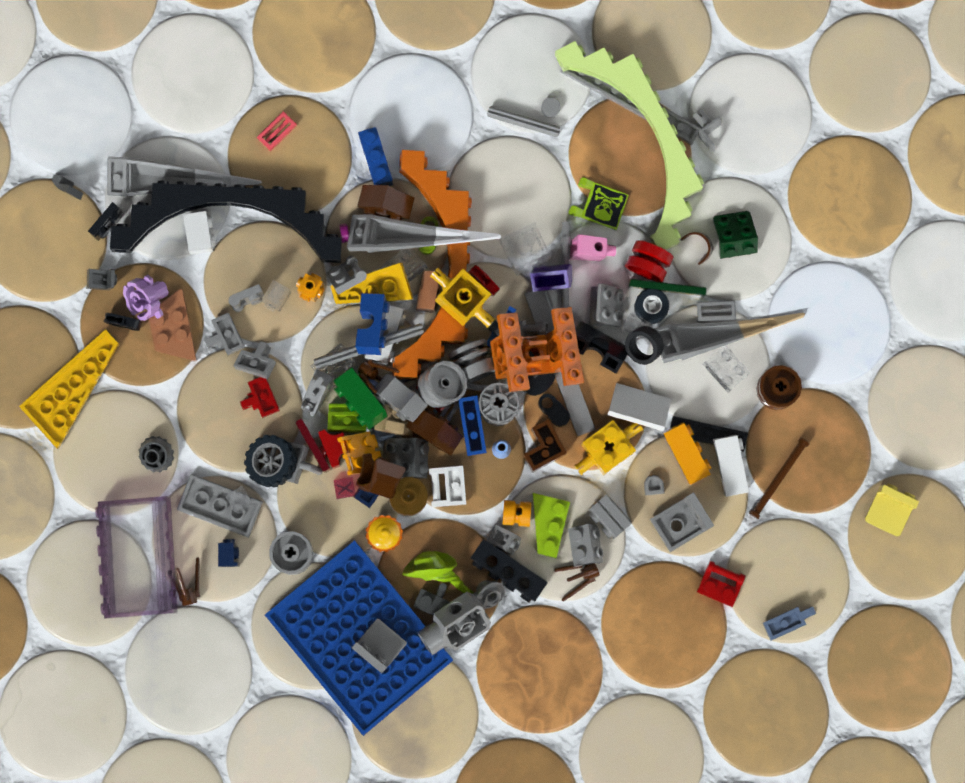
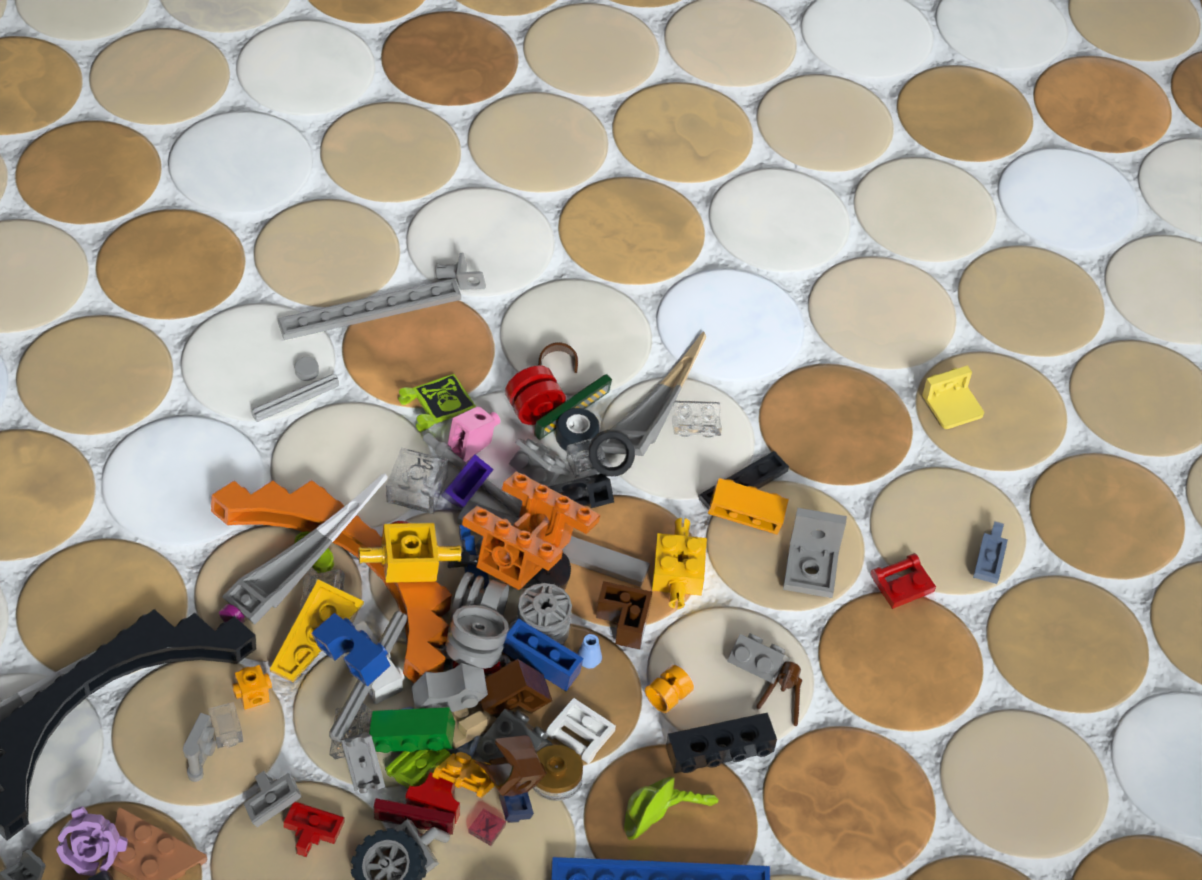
camera: 50 degrees left, 30 degrees down
(198, 232) = (83, 742): white piece -> none
(225, 335) = (212, 806): light grey hinge -> none
(266, 142) = (65, 614): coral tile -> none
(340, 278) = (276, 648): light grey plate -> none
(368, 370) = (395, 701): reddish brown plant -> none
(375, 157) = (209, 537): blue arch -> none
(384, 533) = (573, 822): yellow piece -> none
(385, 201) = (239, 551): reddish brown brick -> none
(427, 293) = (368, 587): nougat brick -> none
(429, 602) = (691, 840): dark grey plate -> none
(462, 618) = (734, 820): light grey brick -> none
(504, 539) = (684, 718): light grey bracket -> none
(549, 523) = (708, 674): lime wing -> none
(557, 413) = (596, 579): black piece -> none
(609, 516) = (749, 615): light grey brick -> none
(630, 80) = (359, 288): yellowish green arch -> none
(639, 407) = (665, 509): white tile -> none
(653, 485) = (752, 561): light grey tile -> none
(715, 311) = (623, 403): light grey tile -> none
(732, 465) = (794, 481): white brick -> none
(736, 234) = (583, 321): dark green bracket -> none
(779, 477) = (858, 502): reddish brown bar -> none
(786, 379) = (755, 394): reddish brown wheel -> none

